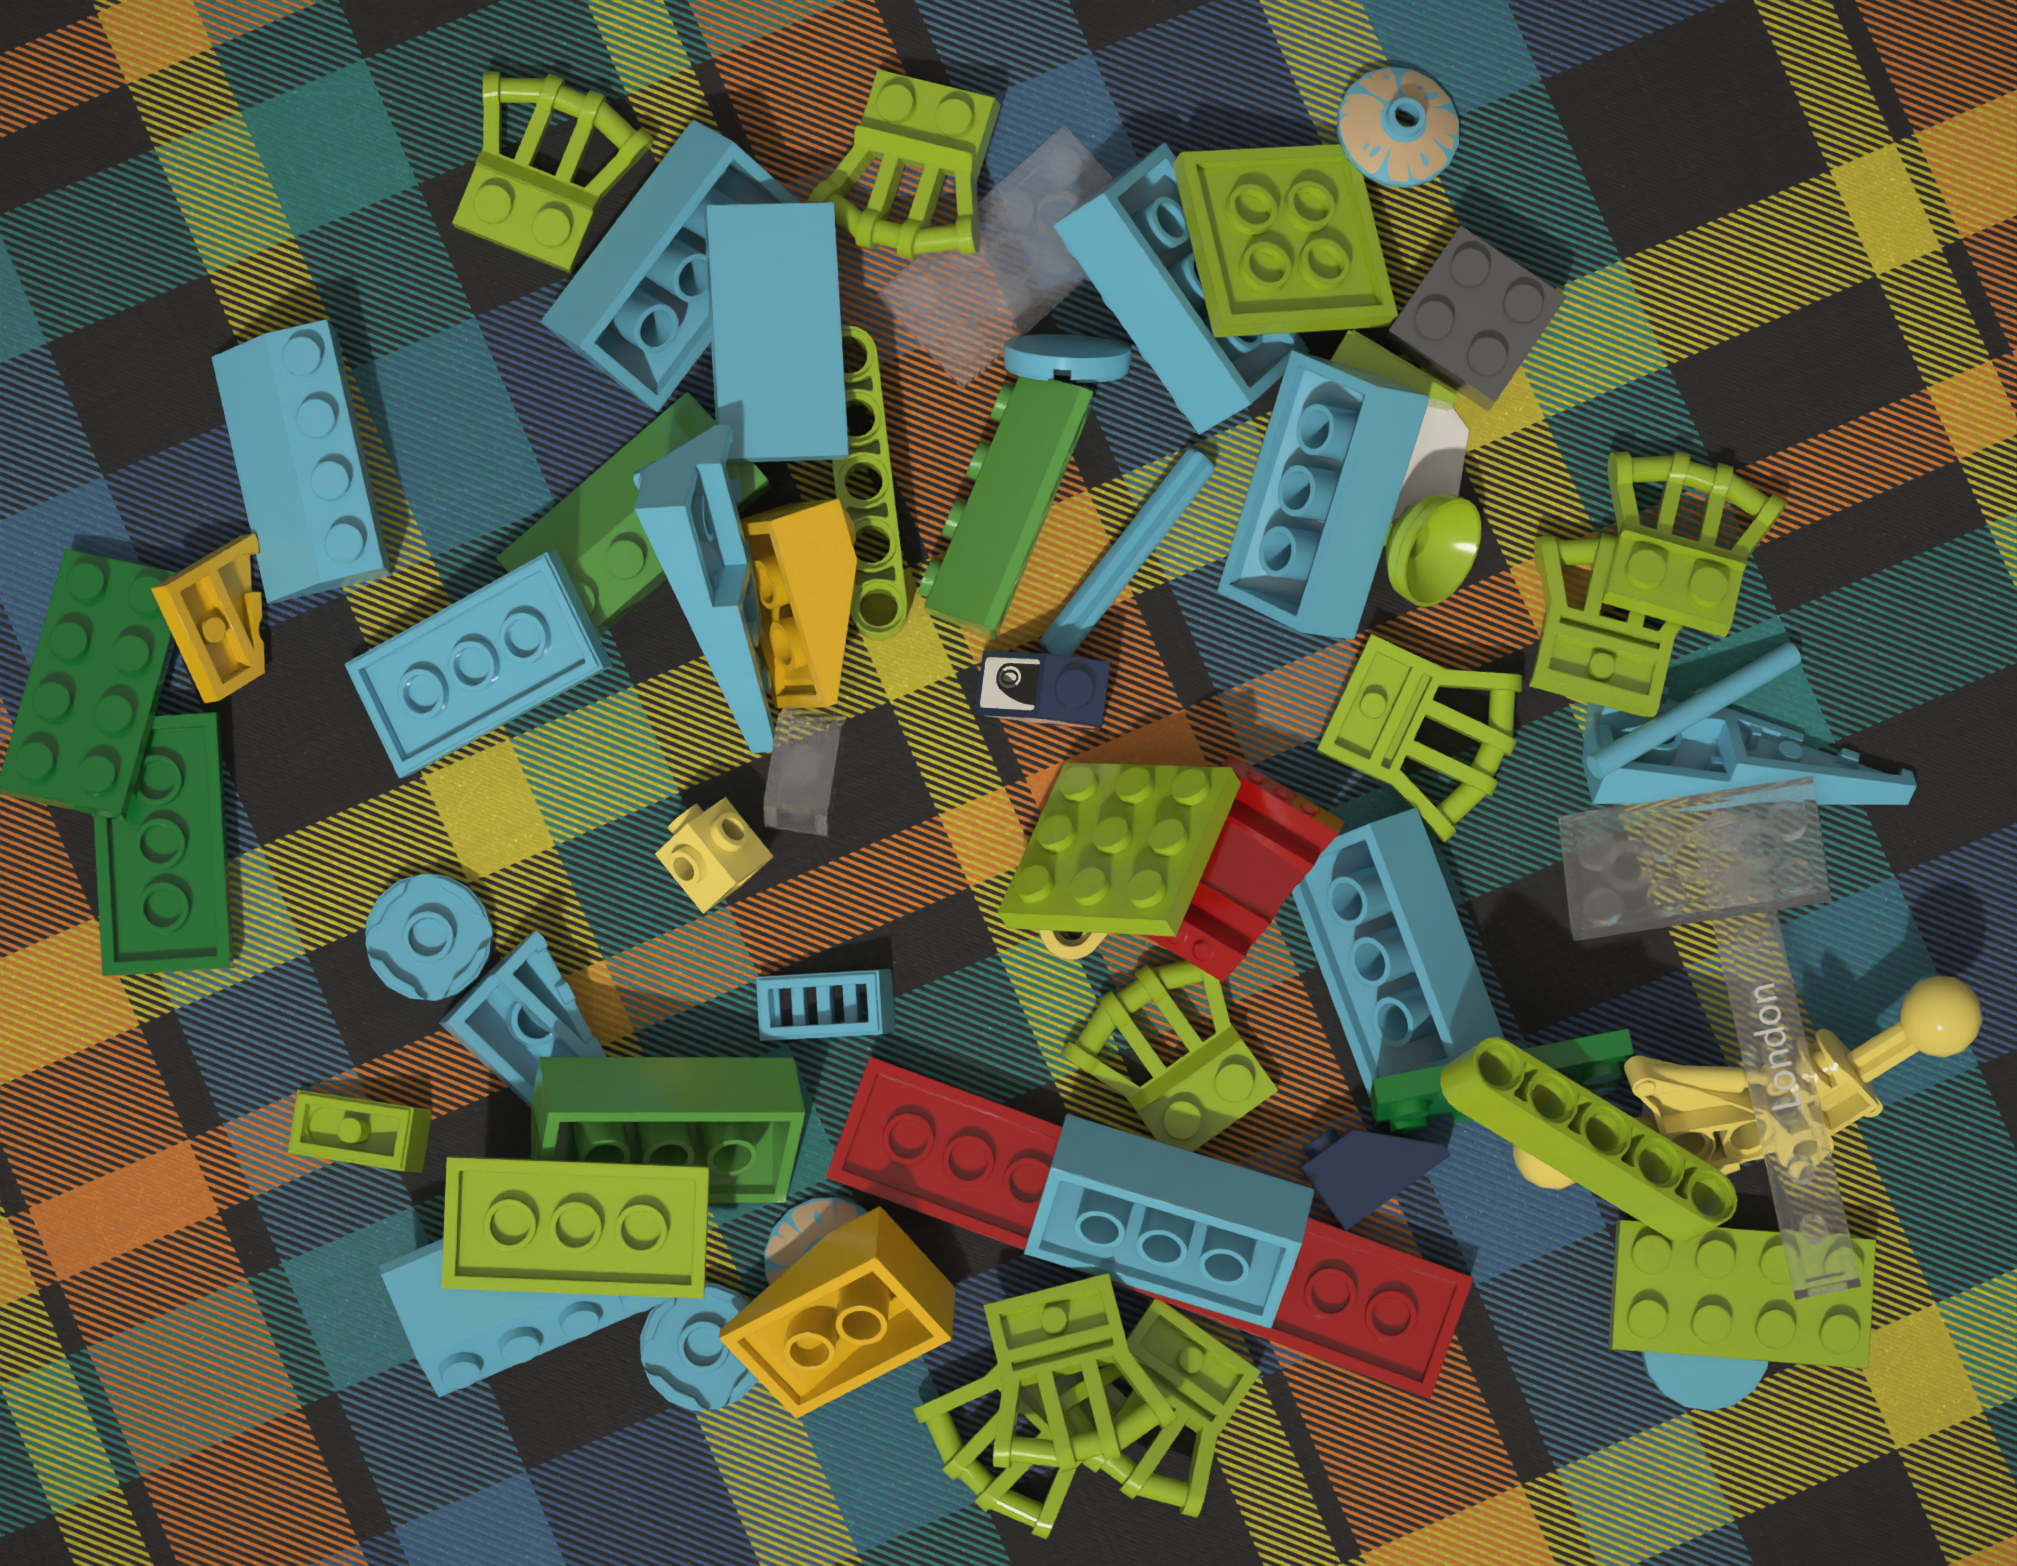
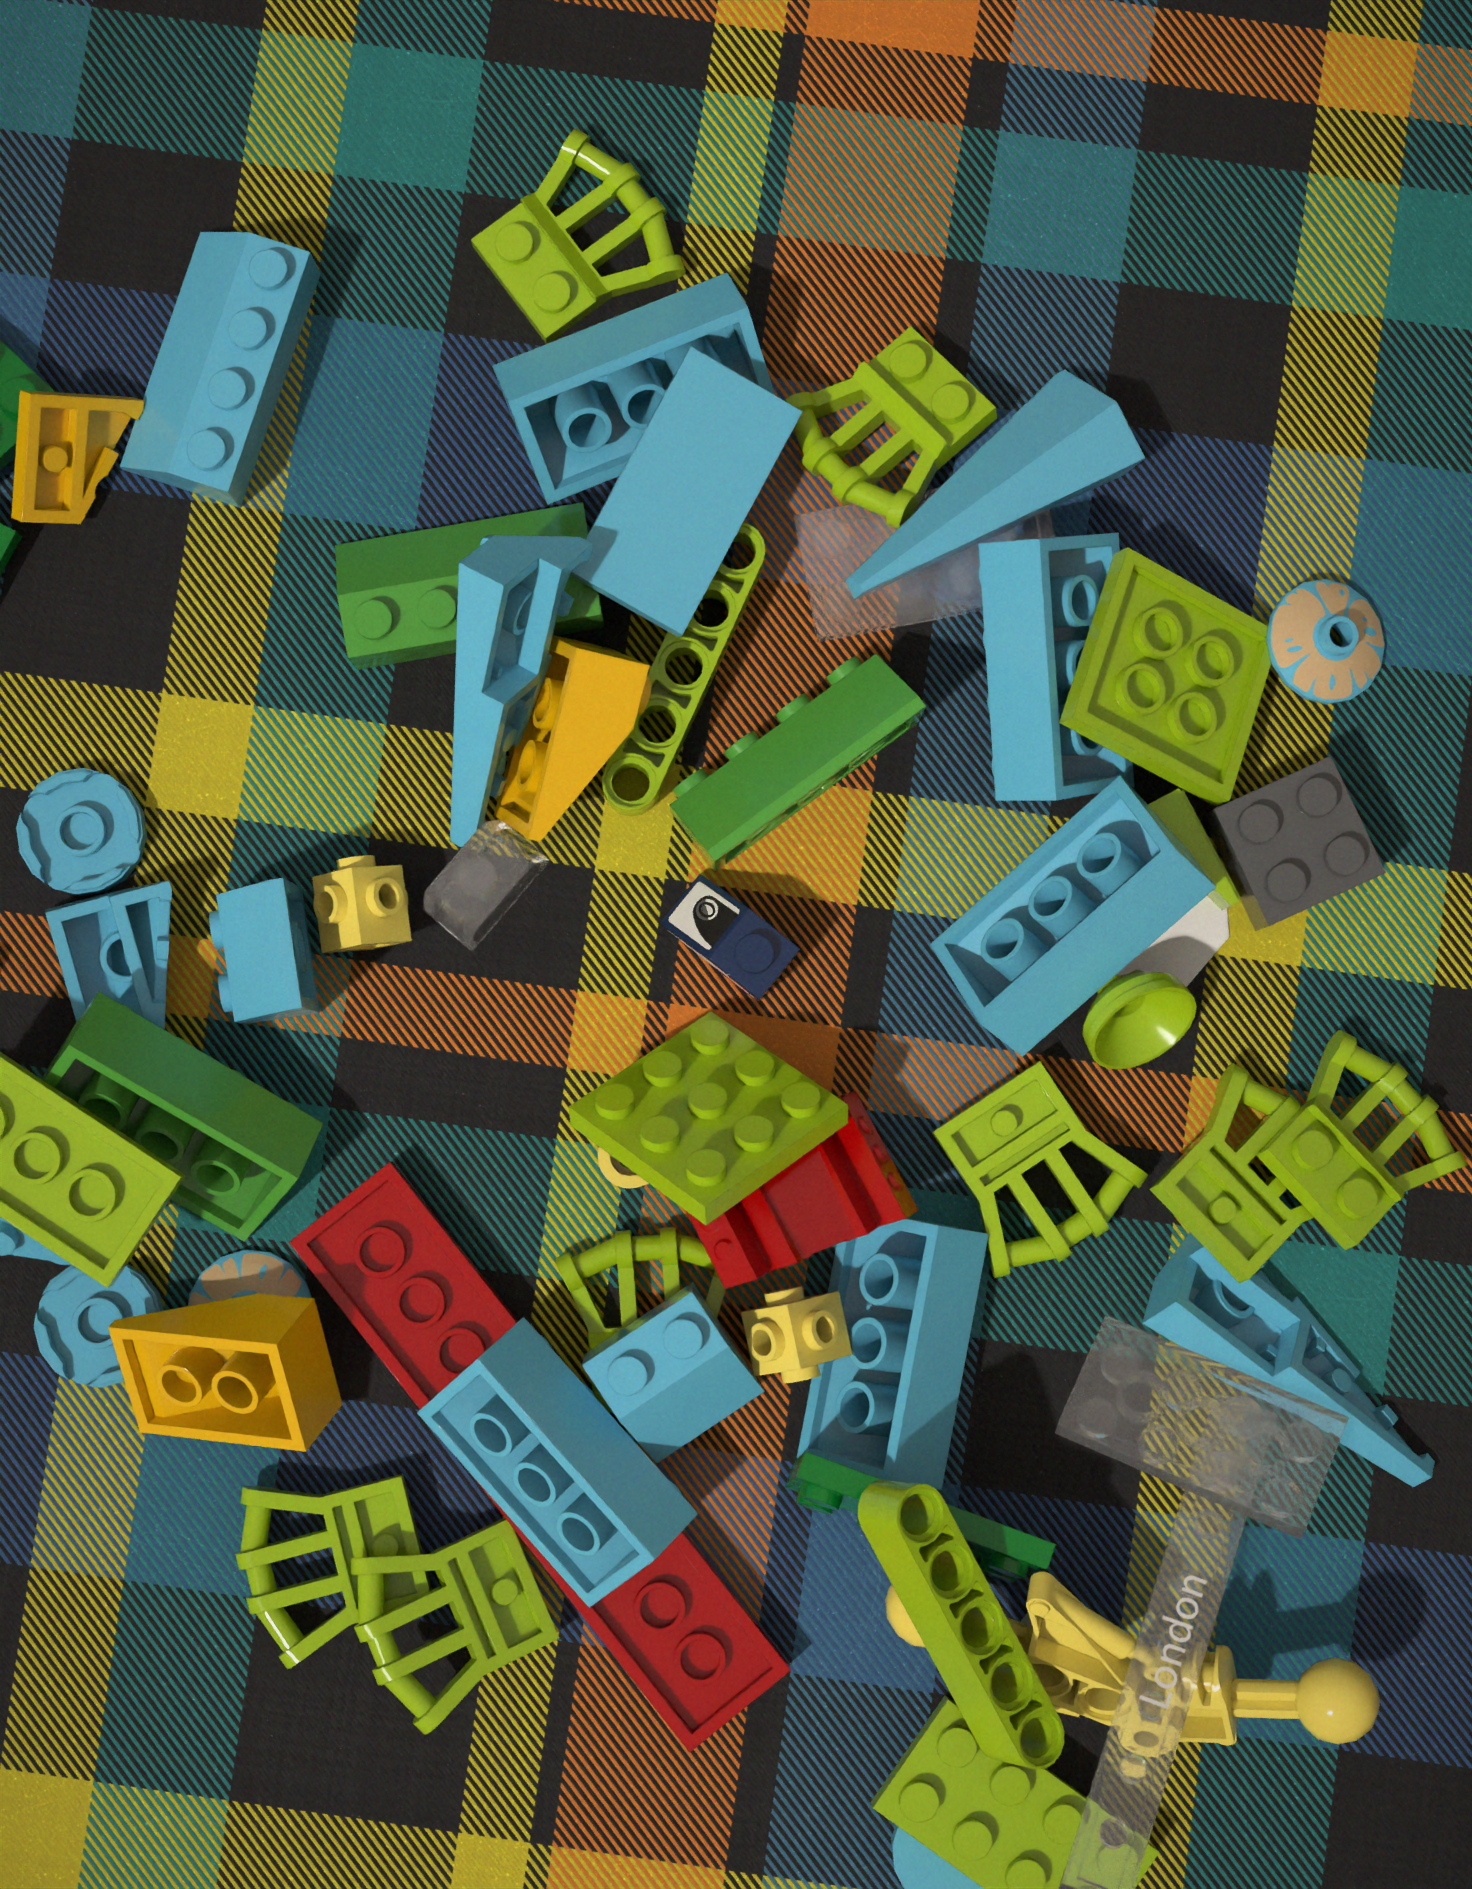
camera: 30 degrees right, 0 degrees up
(478, 664) = (261, 623): medium azure tile -> none
(653, 943) = (264, 952): none -> medium azure slope
(879, 1000) = (426, 1121): medium azure slope -> none
(1056, 1336) = (398, 1503): lime plate -> none
(1059, 115) = (1042, 456): none -> medium azure wedge
(1076, 356) = (926, 666): medium azure tile -> none
(1128, 554) = (872, 866): medium azure axle -> none
(1221, 1087) = (672, 1374): none -> medium azure slope
(1304, 990) = (796, 1333): none -> light yellow brick
(1365, 1169) = (755, 1519): dark blue slope -> none
(1693, 710) = (1278, 1296): medium azure bar -> none

